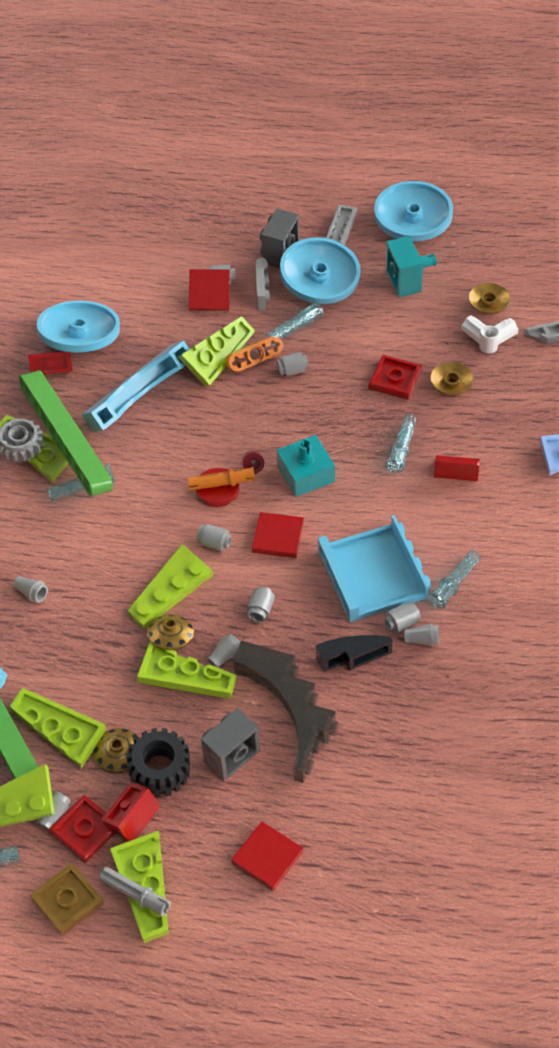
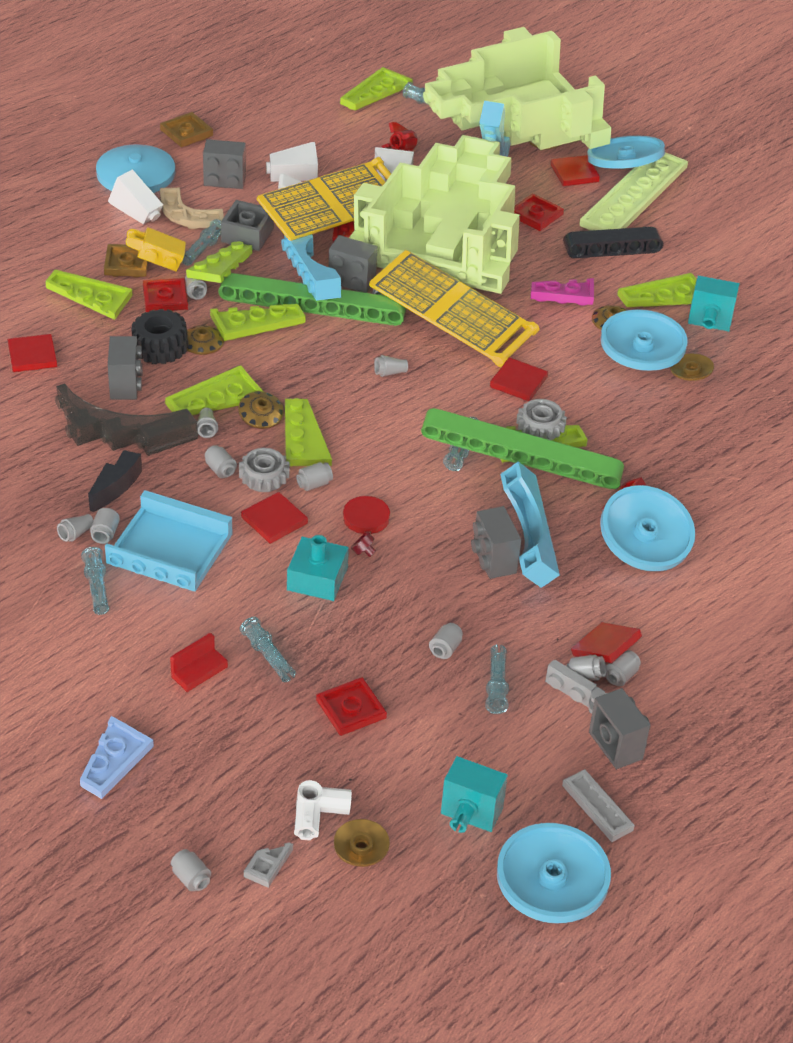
camera: 125 degrees right, 10 degrees down
(34, 869) = (157, 247): none -> yellow brick
(131, 811) = (142, 302): red panel -> none
(144, 896) = (83, 276): light grey axle -> none
(180, 384) = (496, 542): none -> dark grey brick
(209, 356) = (517, 597): lime wing -> none
(230, 477) = (350, 522): orange pin -> none
(239, 353) = (488, 623): orange beam -> none
(243, 285) = (588, 666): none -> light grey brick
(244, 561) = (264, 469): none -> light grey gear
(320, 270) = (543, 732): medium azure dish -> none
(452, 378) = (295, 733): pearl gold dish -> none

